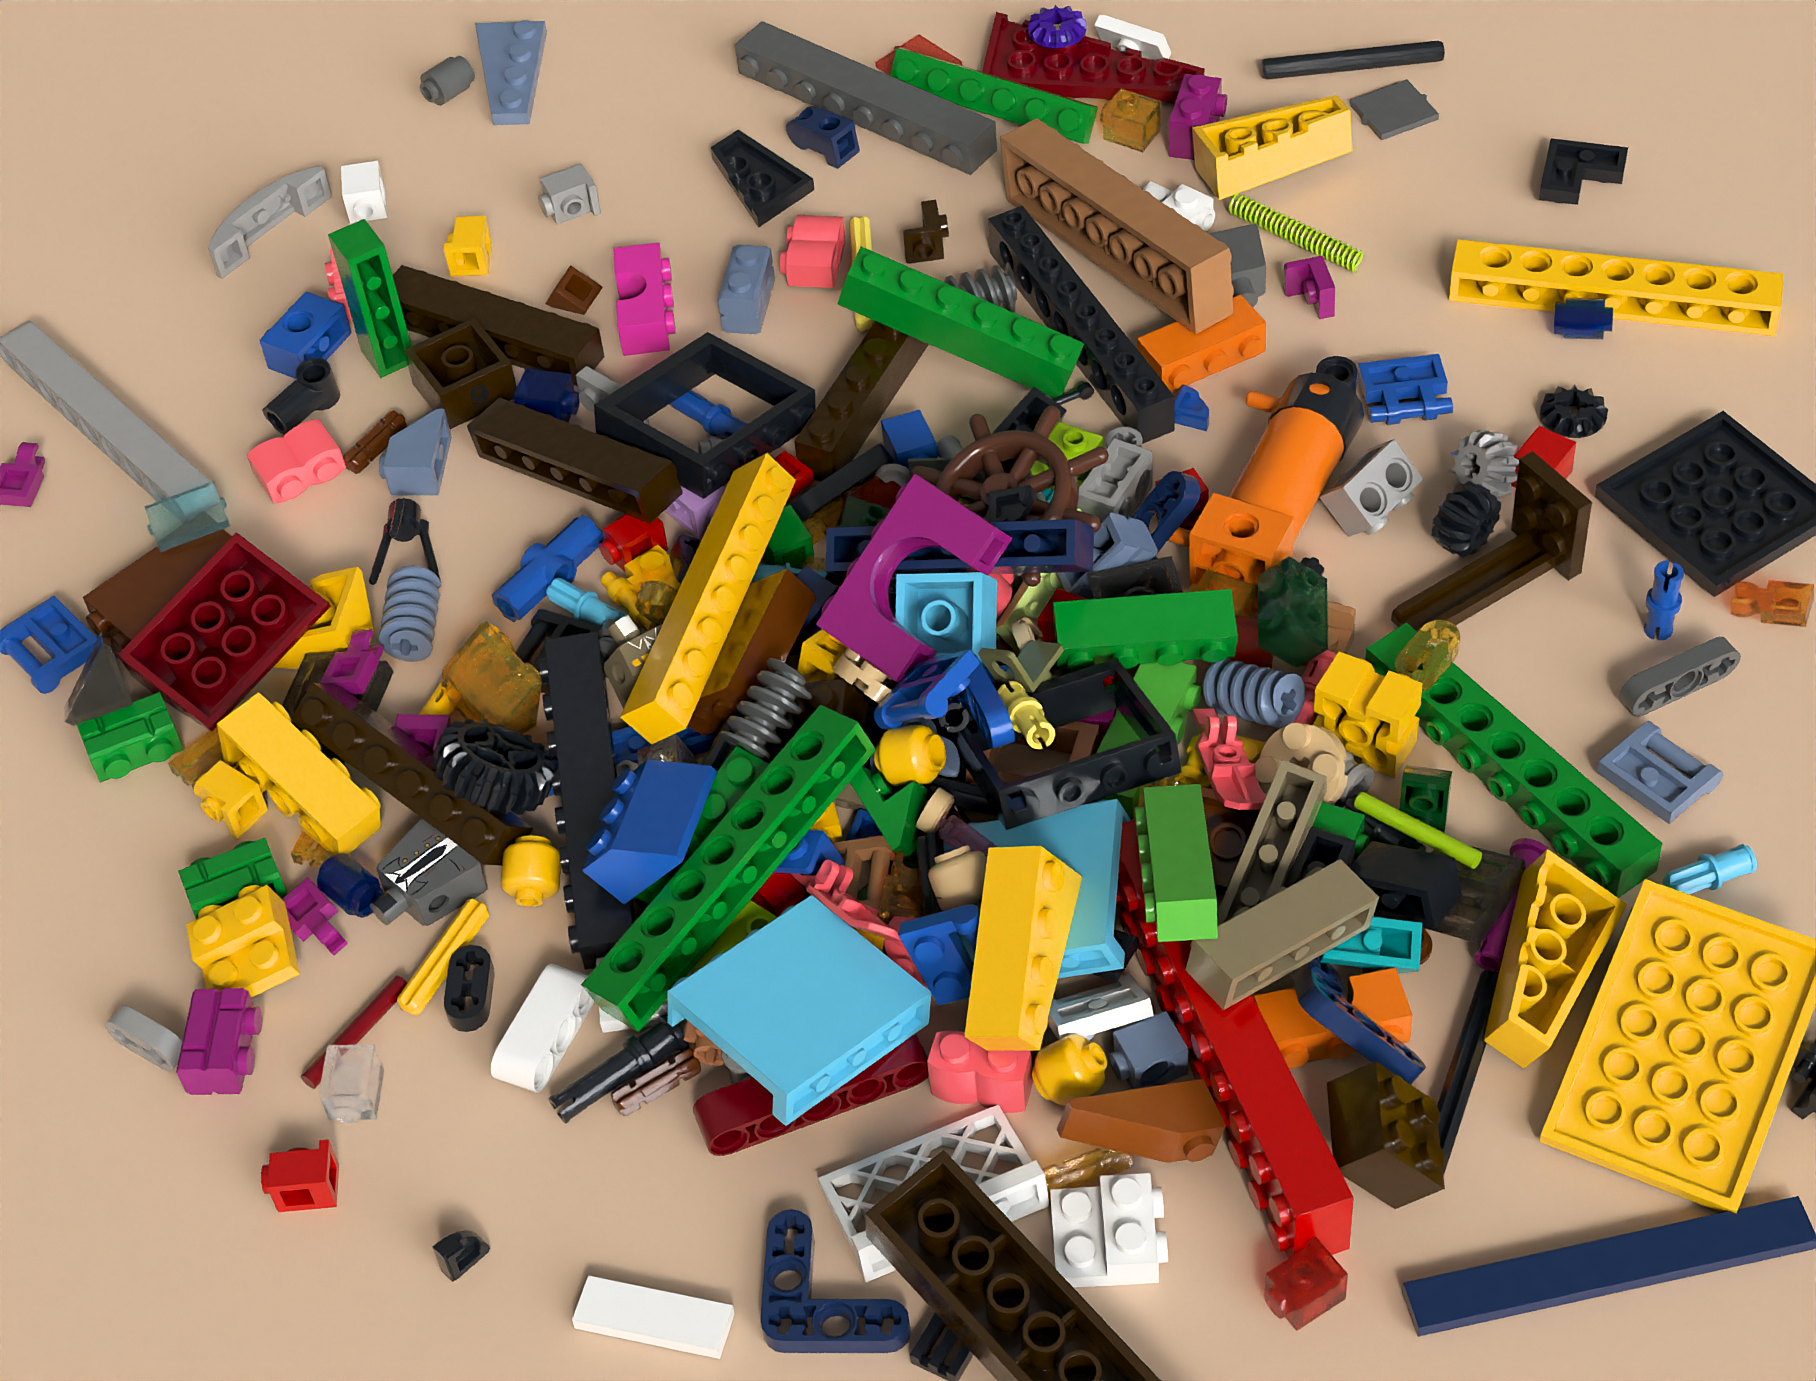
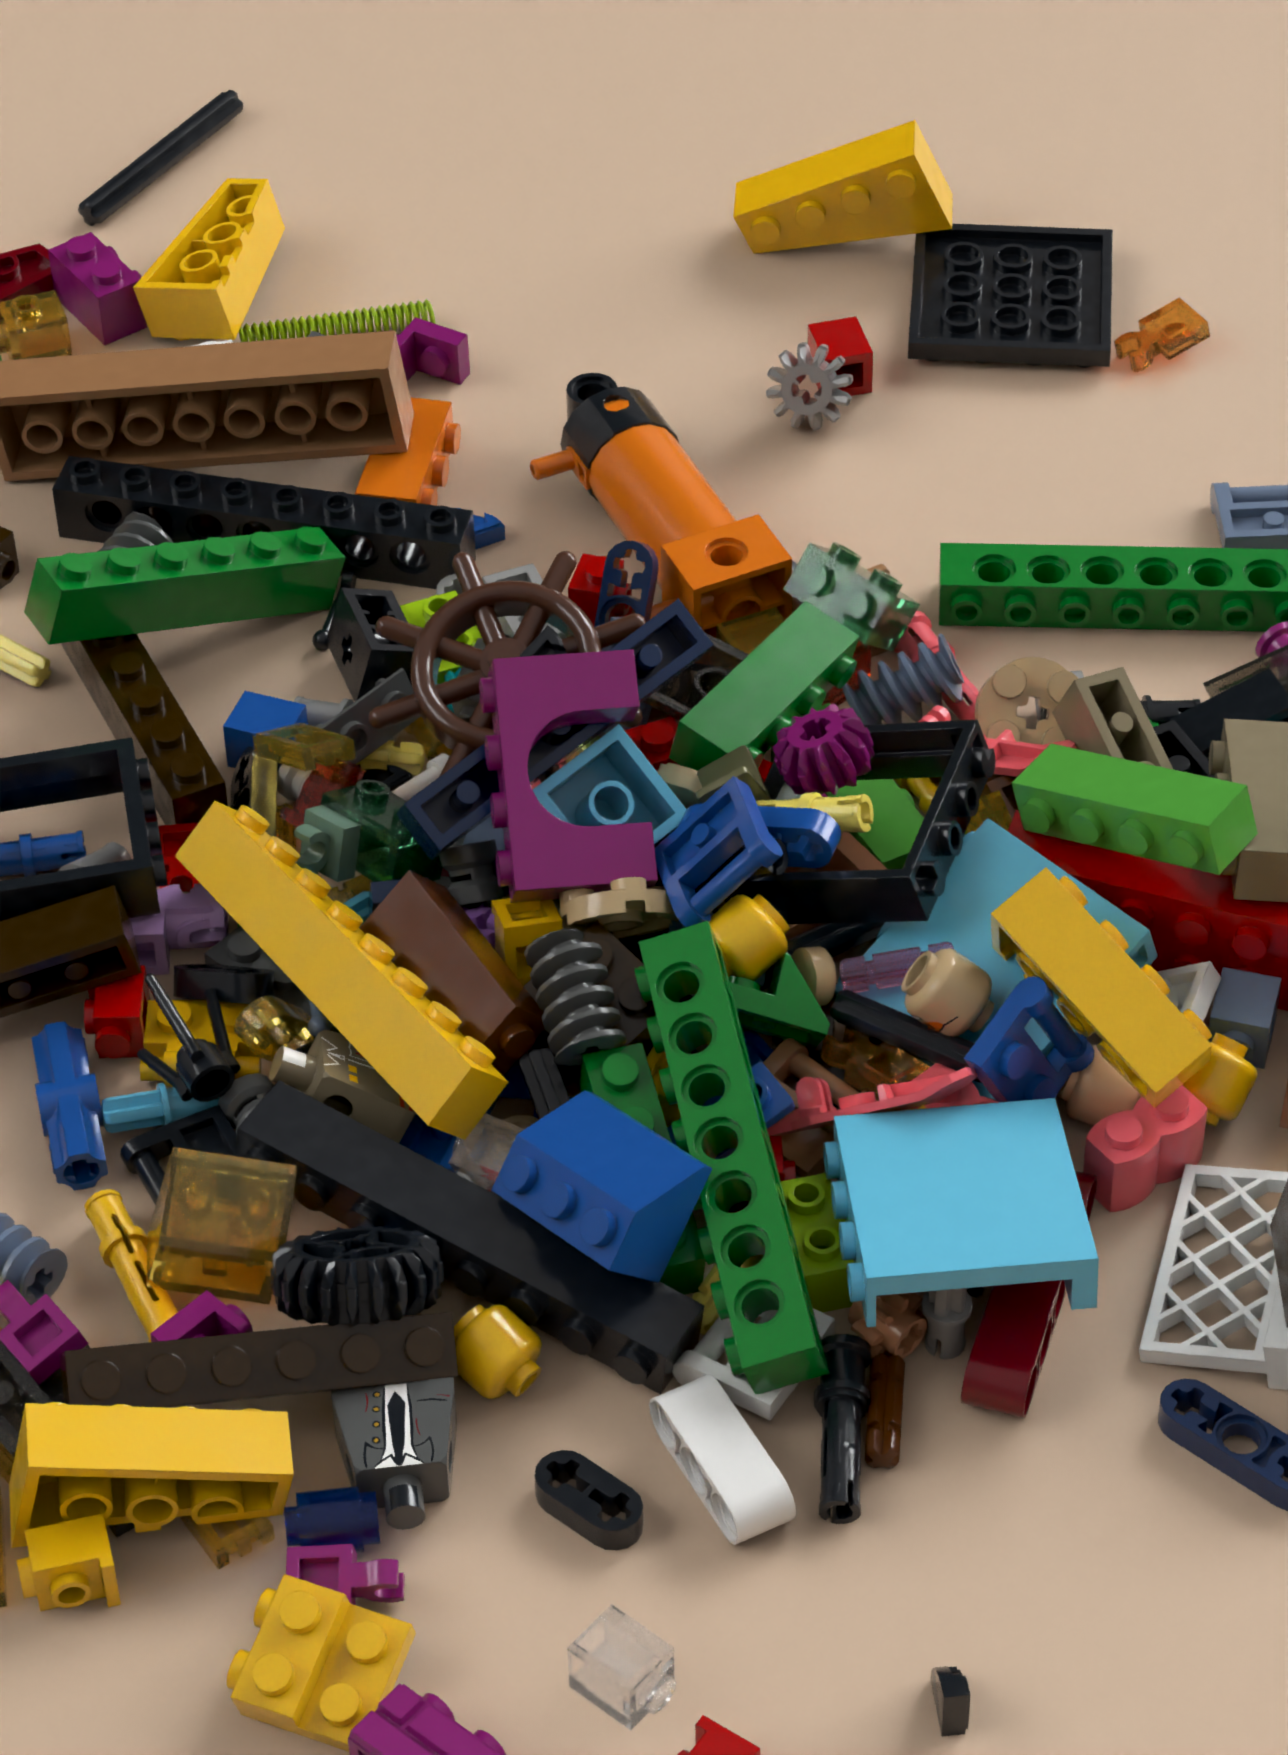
camera: 55 degrees left, 5 degrees down
(225, 875) = (203, 1627): green brick -> none
(358, 1027) = (539, 1636): dark red bar -> none
(435, 965) = (520, 1499): yellow axle -> none
(604, 593) = (202, 1067): none -> black plant
(653, 1317) = (1182, 1579): white tile -> none
(821, 520) = (328, 843): none -> sand green tile
(879, 470) = (309, 746): none -> clear yellow tile
(1083, 682) = (823, 750): none -> magenta gear
(1369, 711) = (1020, 619): yellow brick -> none
(1371, 489) = (743, 466): light grey brick -> none
(1394, 109) = (280, 167): dark grey piece -> none
(1403, 379) = (638, 363): blue plate -> none
(1418, 830) = (1202, 679): lime bar -> none
(1426, 795) = (1158, 656): dark green slope -> none
(1434, 660) = (997, 552): clear yellow beam -> none
(1466, 519) = (857, 436): black gear -> none
(1550, 532) = (935, 393): dark brown bracket -> none
(1558, 418) = (791, 318): black gear -> none
(1576, 161) = (504, 119): black plate -> none
(1582, 318) = (695, 230): clear blue brick -> none
(1633, 286) = (673, 192): yellow brick -> none
(1663, 600) = (1103, 382): blue pin -> none
(1679, 676) = (1181, 436): dark grey beam -> none
(1693, 360) = (847, 194): none -> yellow wedge

